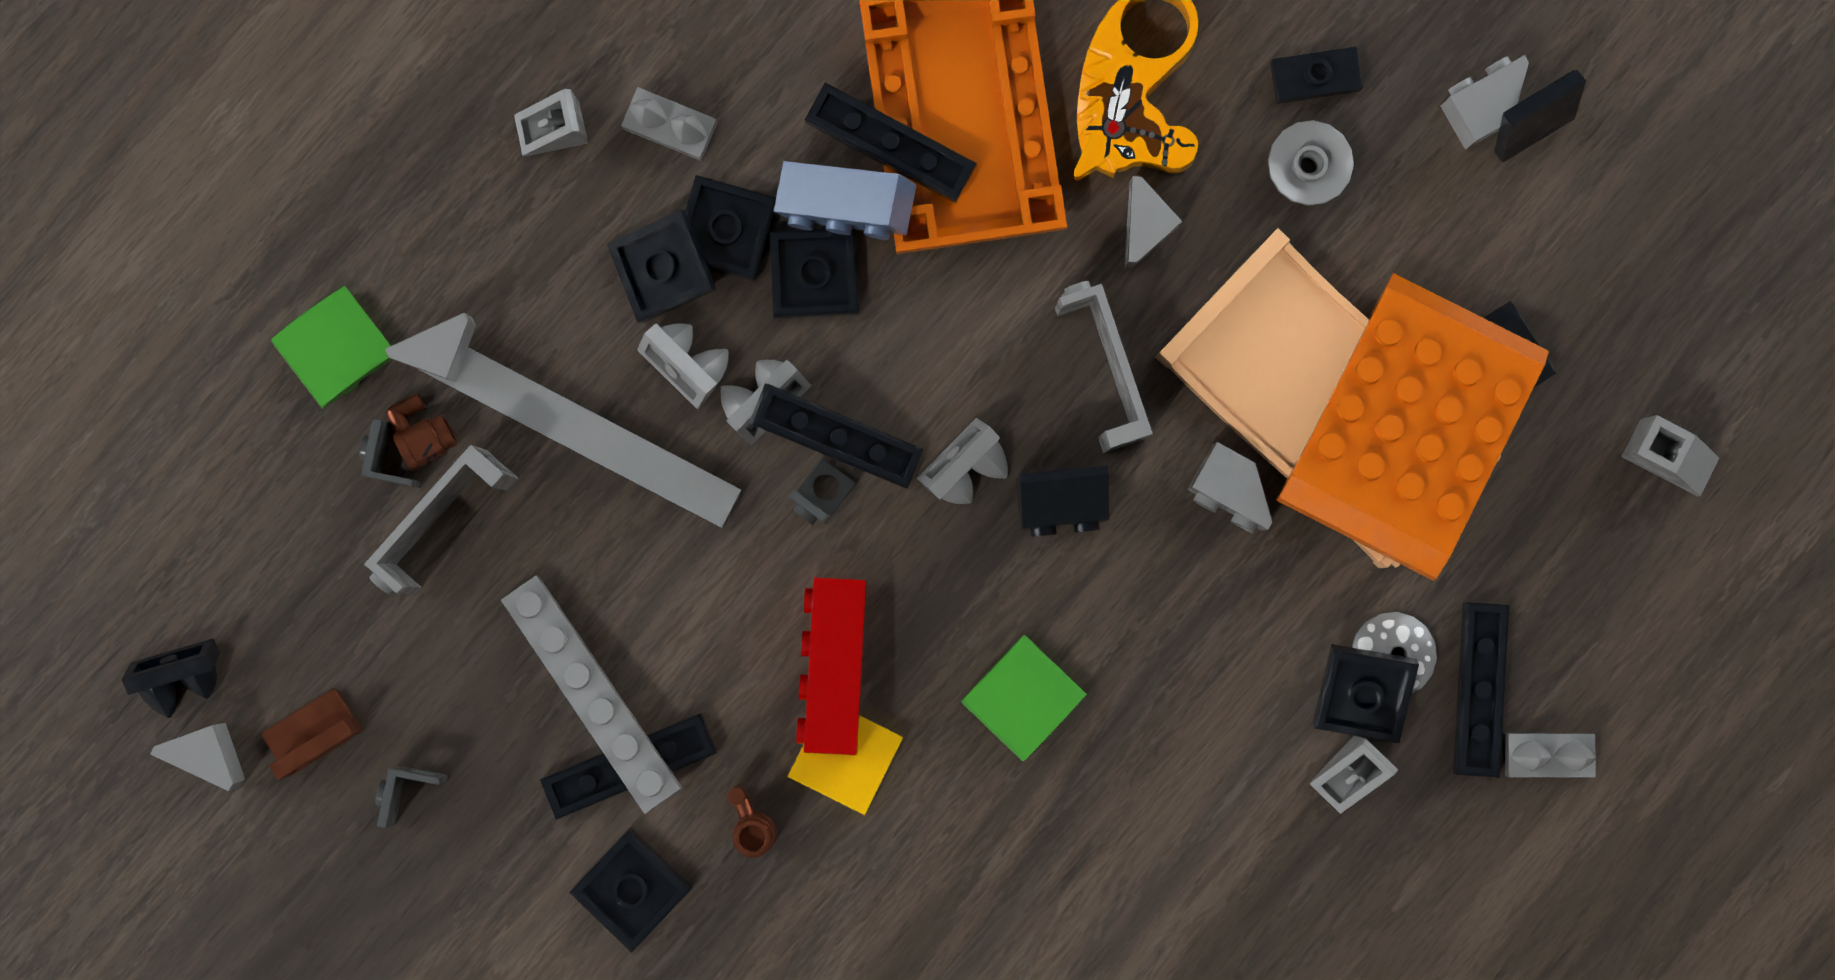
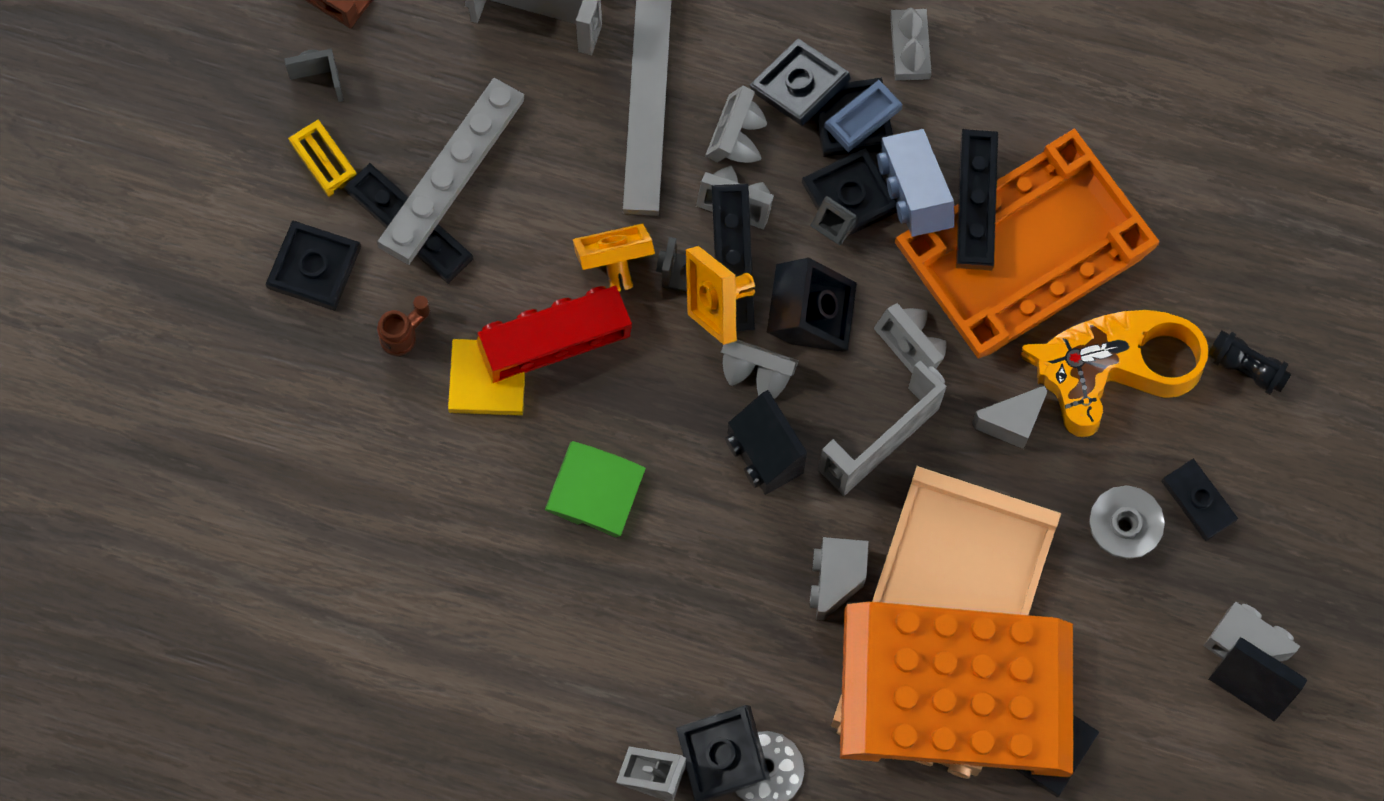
camera: 65 degrees right, 15 degrees down
(545, 820) = (338, 181): none -> yellow tile
(734, 217) = (863, 115): none -> sand blue tile
(770, 561) = (613, 250): none -> light orange tile
(844, 308) = (834, 221): none -> dark grey slope
(878, 478) = (713, 294): none -> light orange tile
(926, 376) = (811, 305): none -> black slope
(999, 295) = (904, 335): none -> light grey tile

